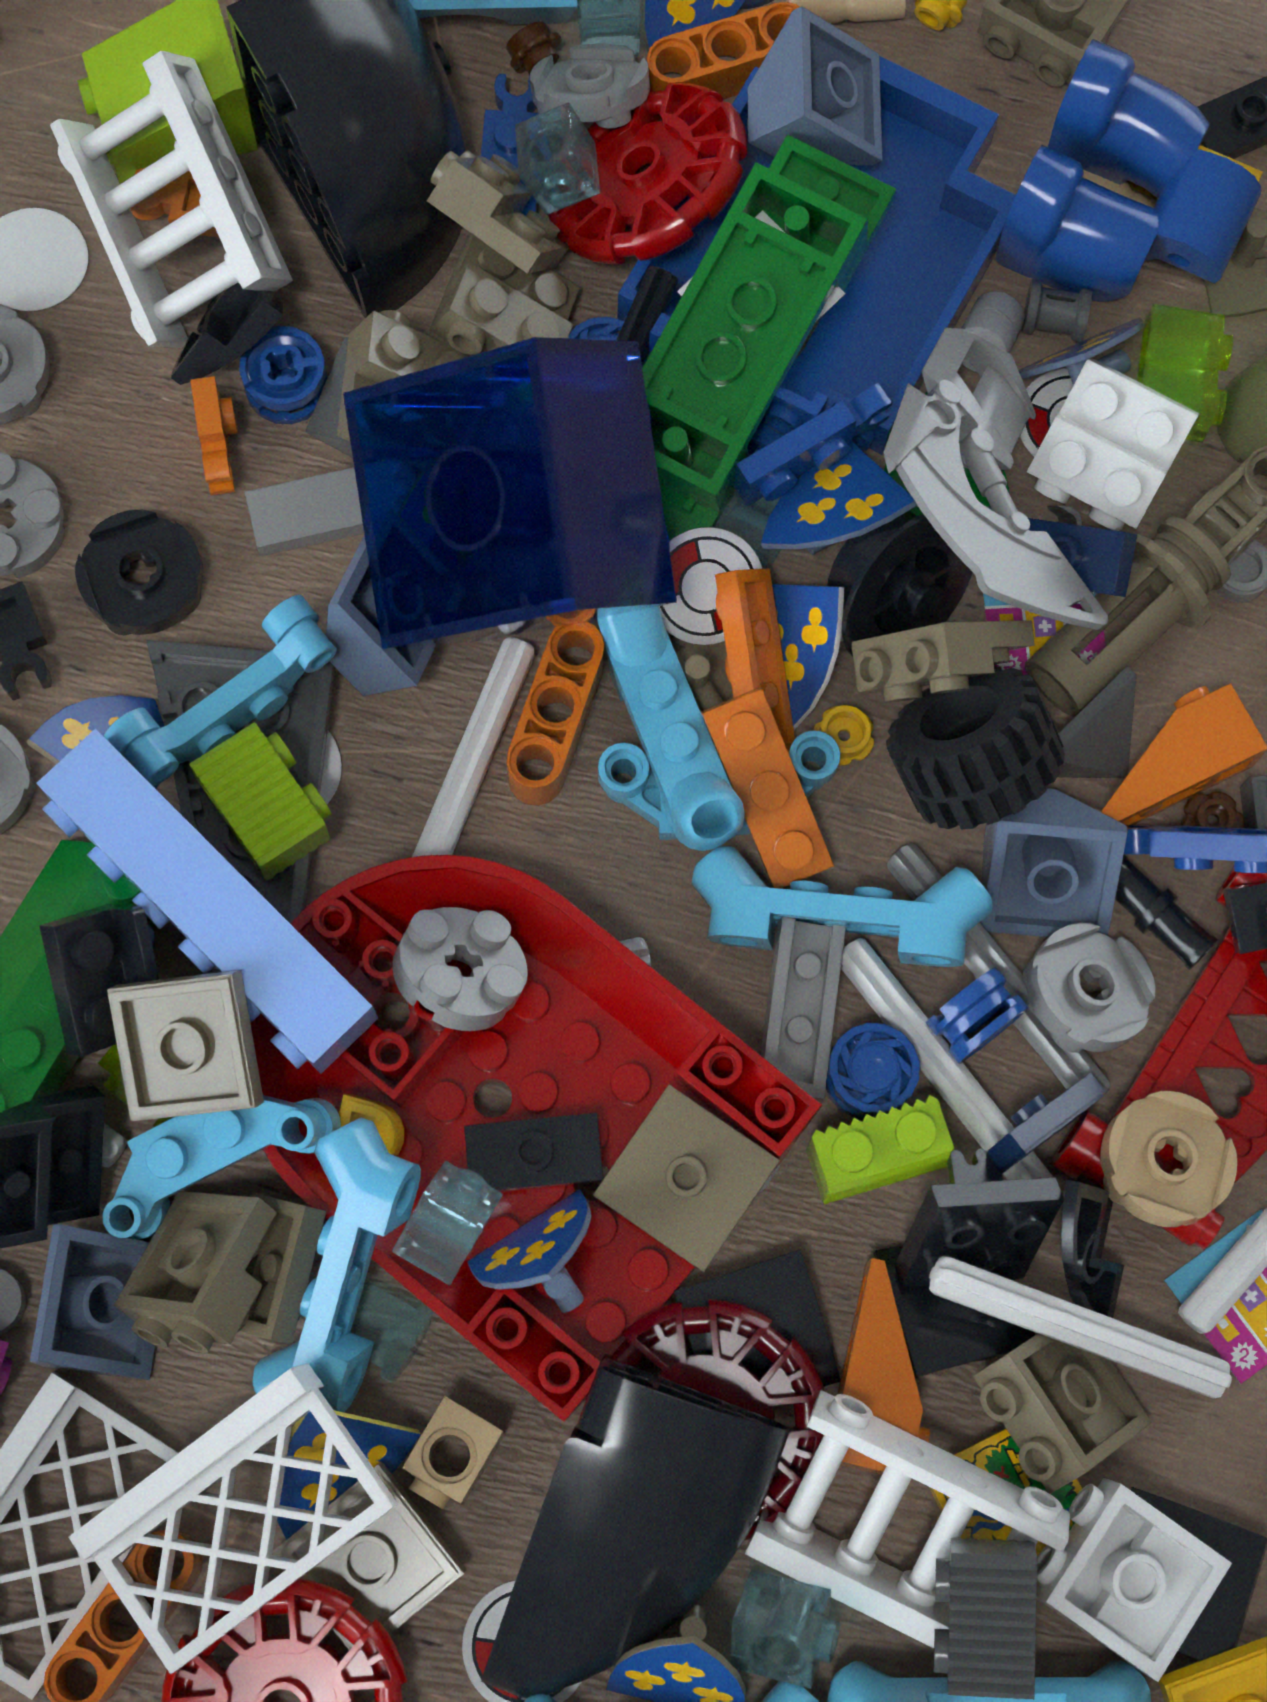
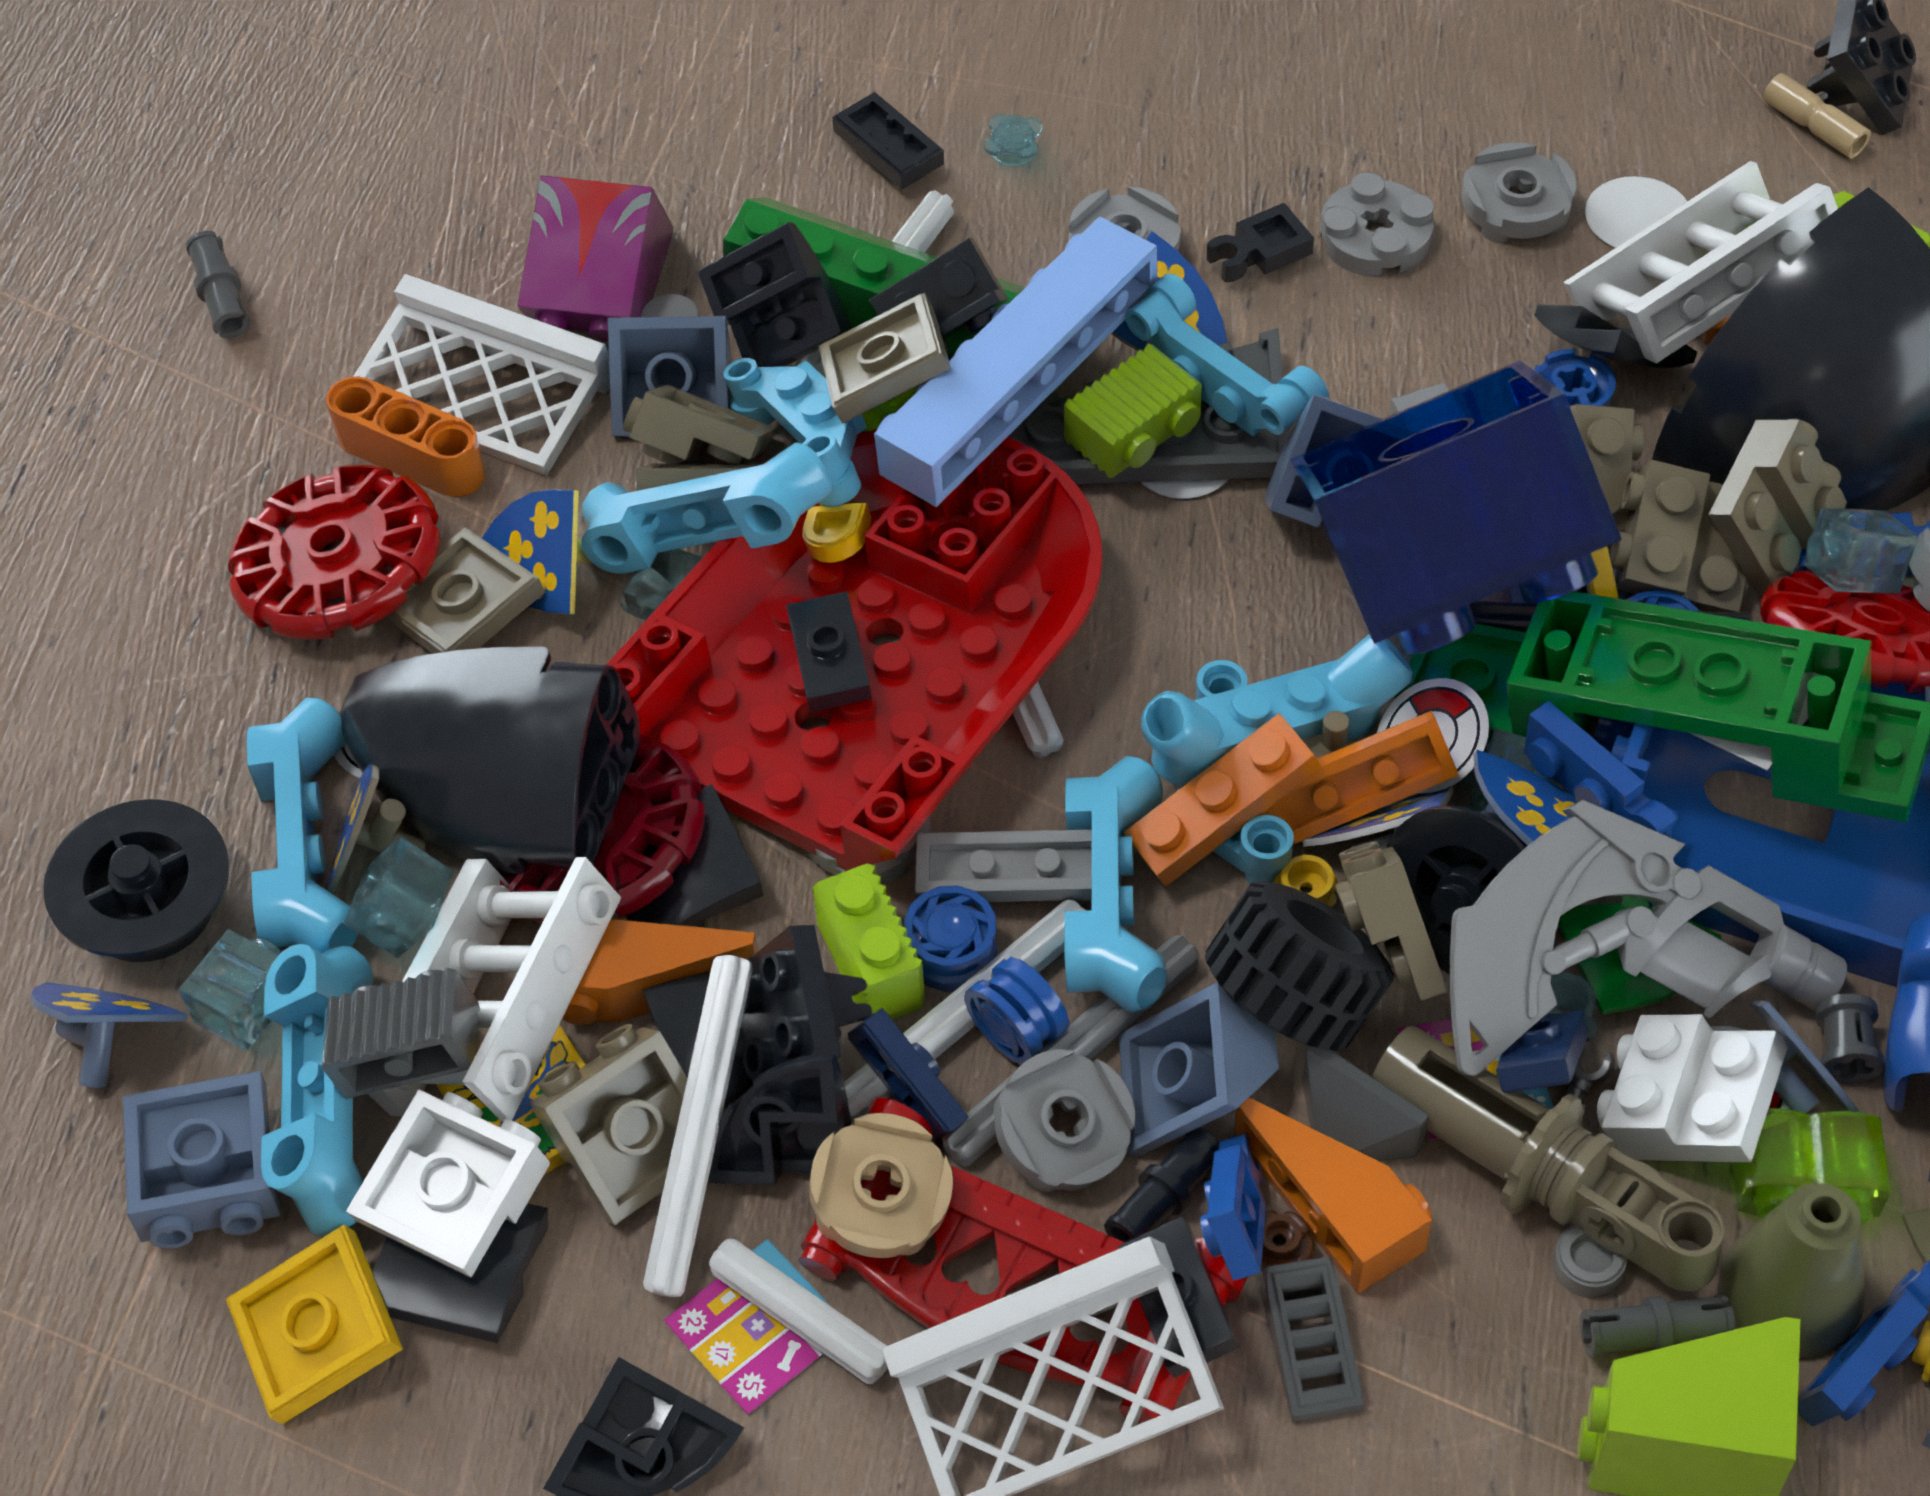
camera: 90 degrees right, 20 degrees down
(144, 607) = (1345, 347): black plate -> none
(197, 1469) = (518, 431): white fence -> none
(214, 423) = (1495, 347): orange plate -> none
(447, 1222) = (754, 585): clear light blue brick -> none
(452, 1422) = (562, 627): tan brick -> none
(470, 937) = (1018, 538): light grey plate -> none
(476, 749) = (1223, 588): white axle -> none
(539, 1253) = (721, 665): shield -> none
(562, 684) = (1267, 632): orange beam -> none
(686, 1178) = (813, 766): dark tan plate -> none

